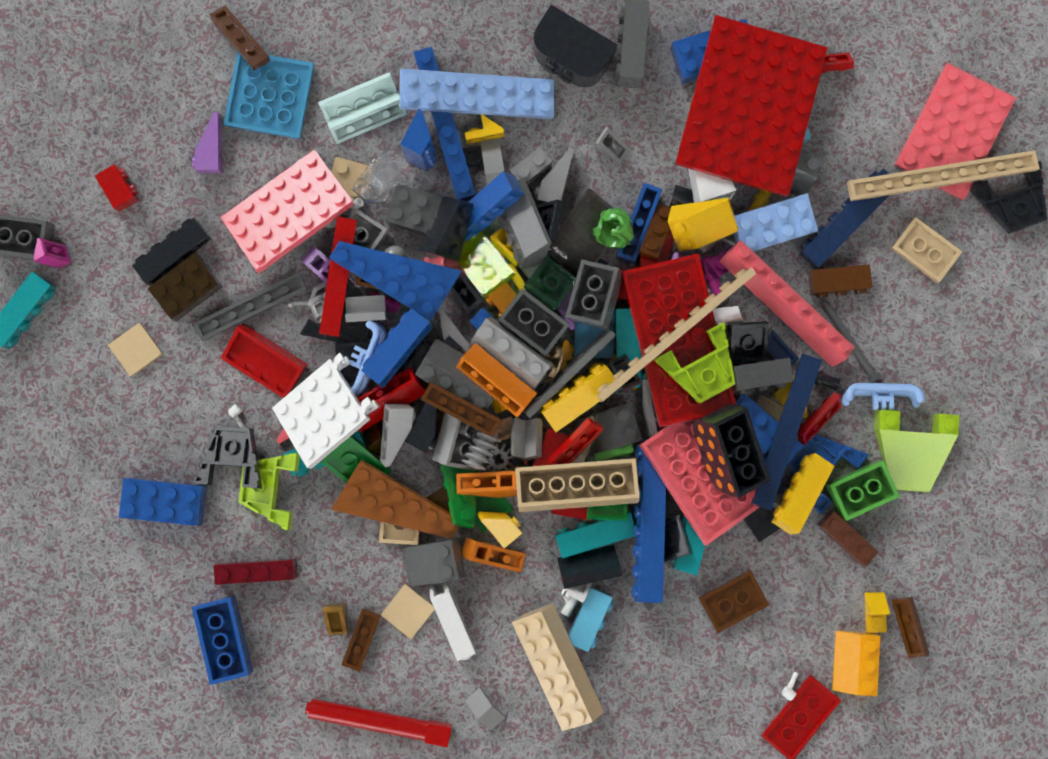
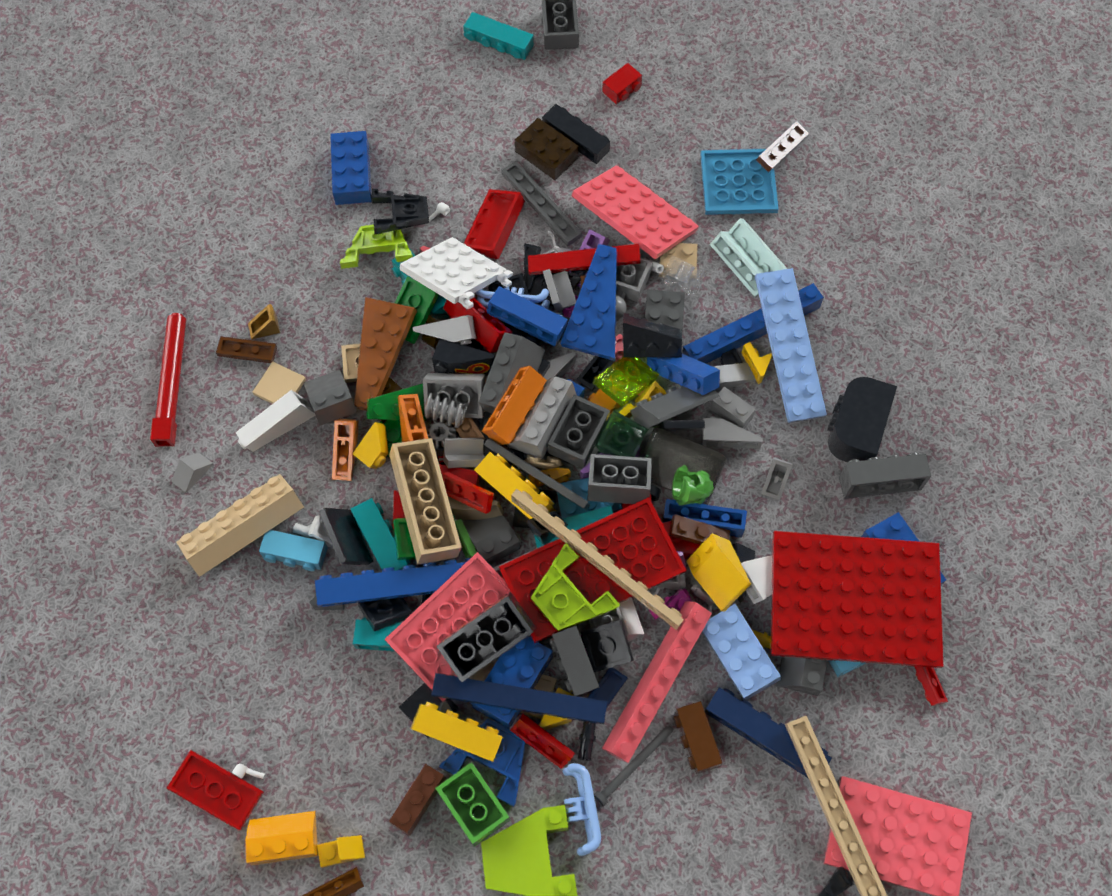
camera: 80 degrees right, 20 degrees down
(51, 253) = (552, 45): dark pink slope -> none
(135, 349) = (483, 125): tan tile -> none
(209, 149) = (676, 144): medium lavender slope -> none
(222, 639) = (232, 234): blue brick -> none
(255, 571) = (298, 250): dark red brick -> none
(418, 144) = (729, 297): blue slope -> none
(461, 409) = (478, 377): reddish brown plate -> none
(733, 601) = (331, 692): reddish brown plate -> none
(926, 250) = (755, 829): tan plate -> none

